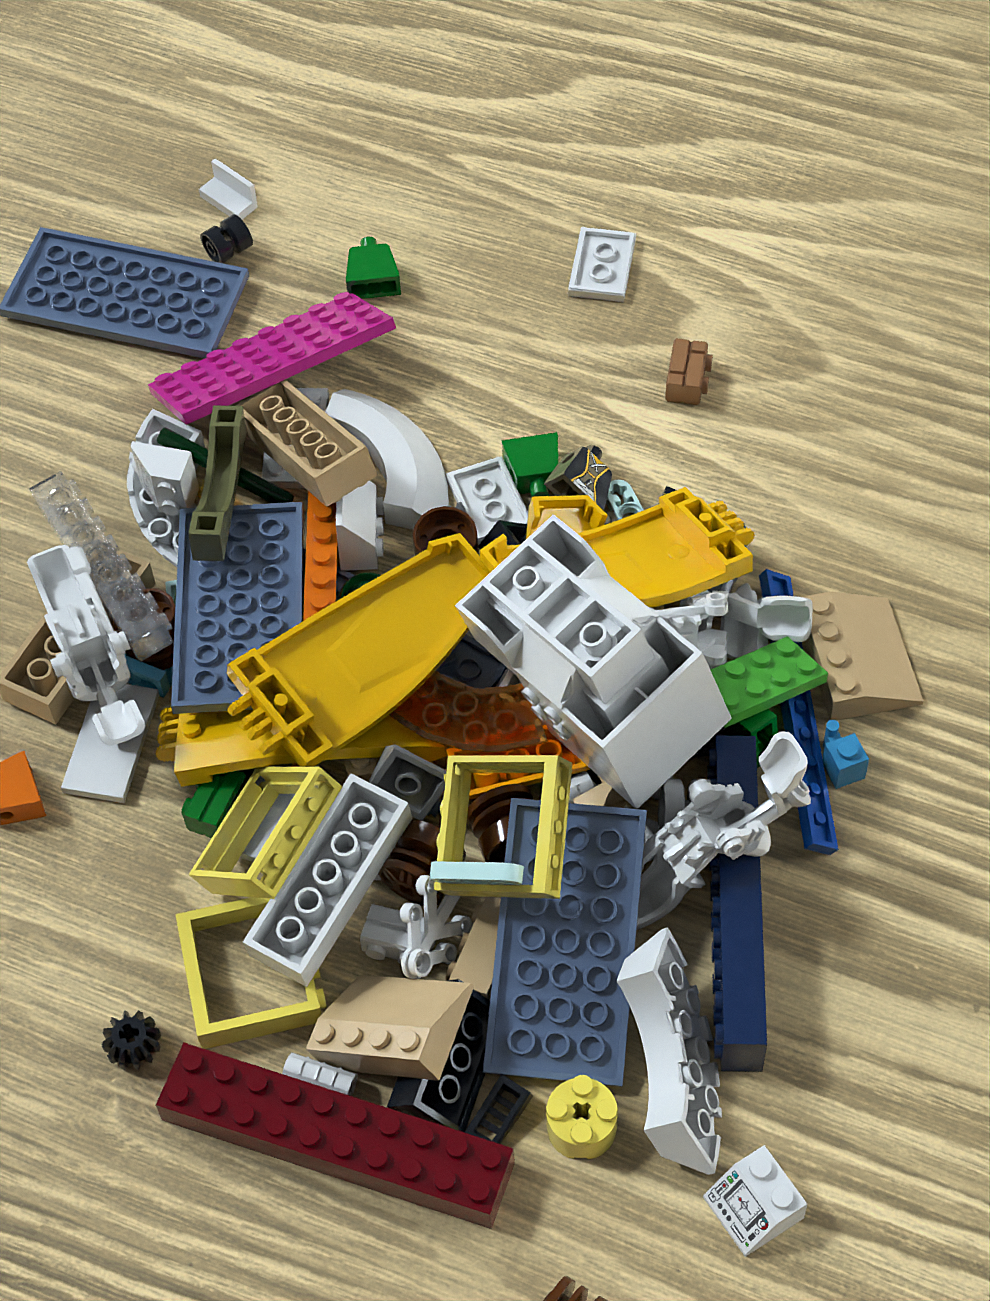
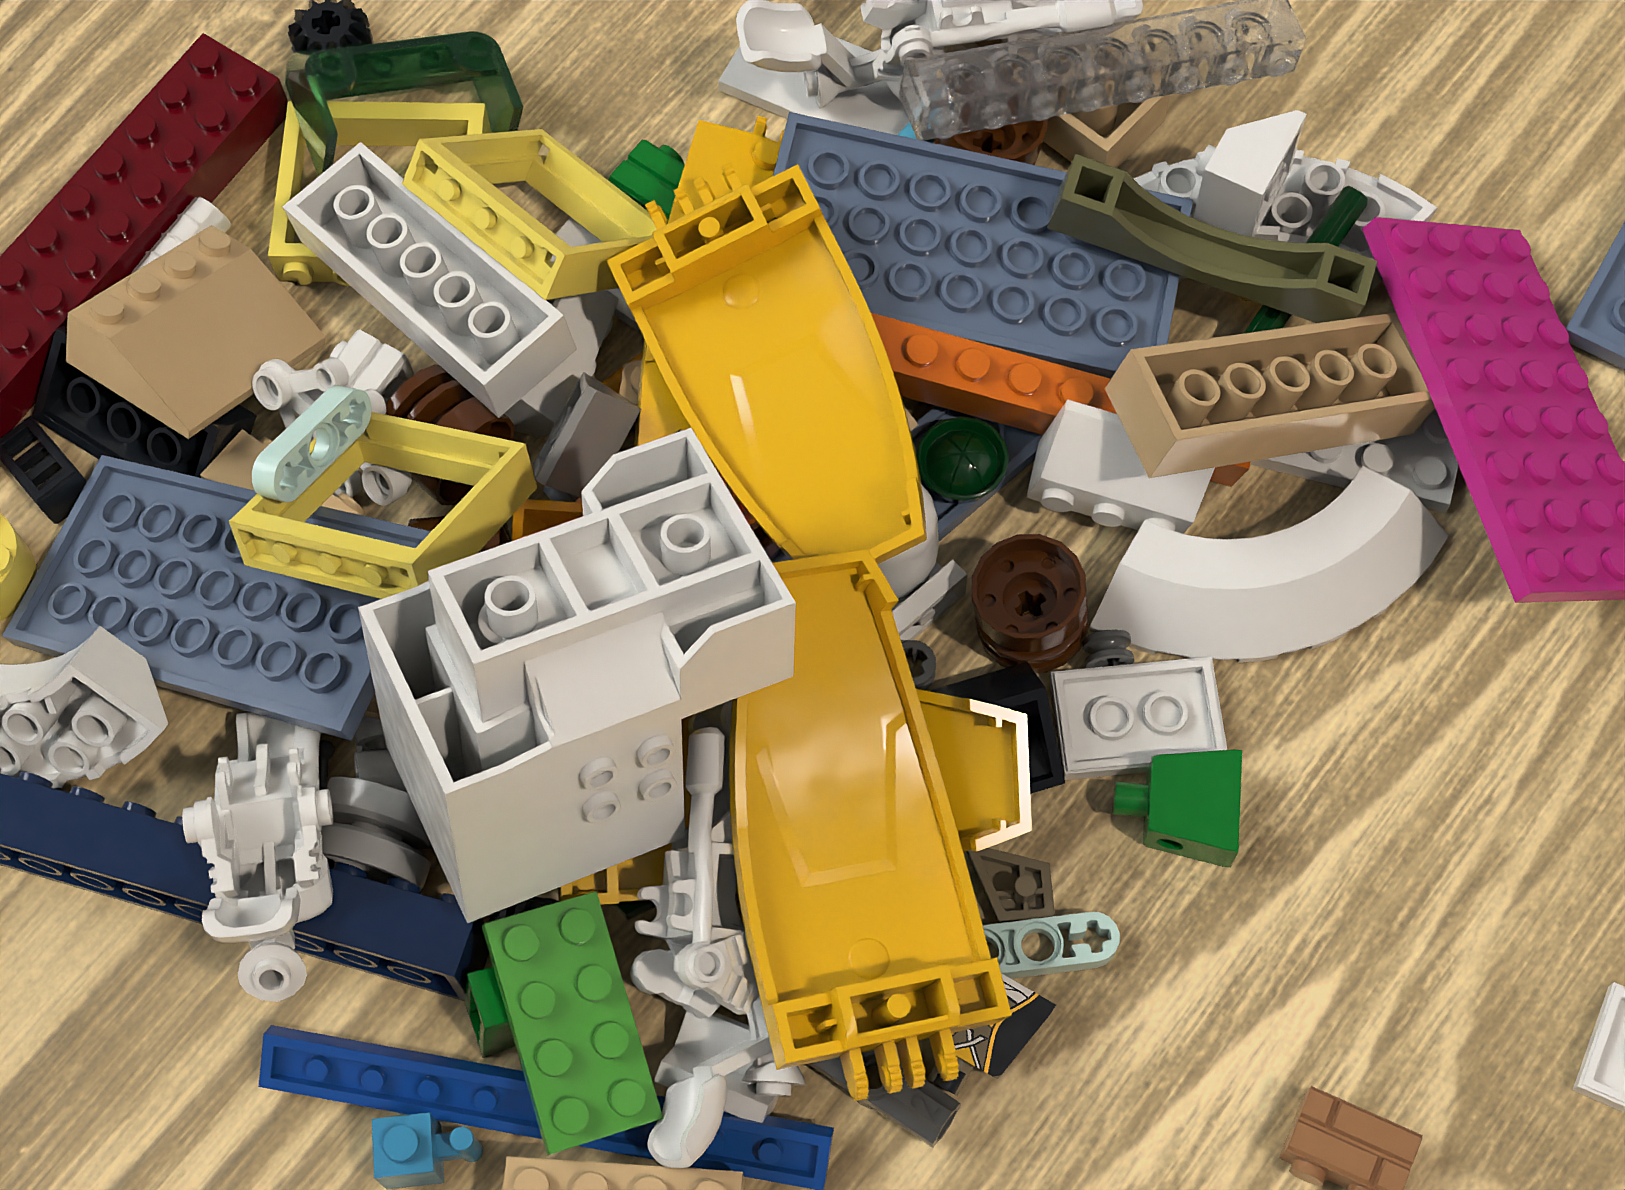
camera: 105 degrees right, 10 degrees up
(181, 997) = (393, 66): none -> clear green windscreen
(581, 474) = (1122, 868): torso -> none

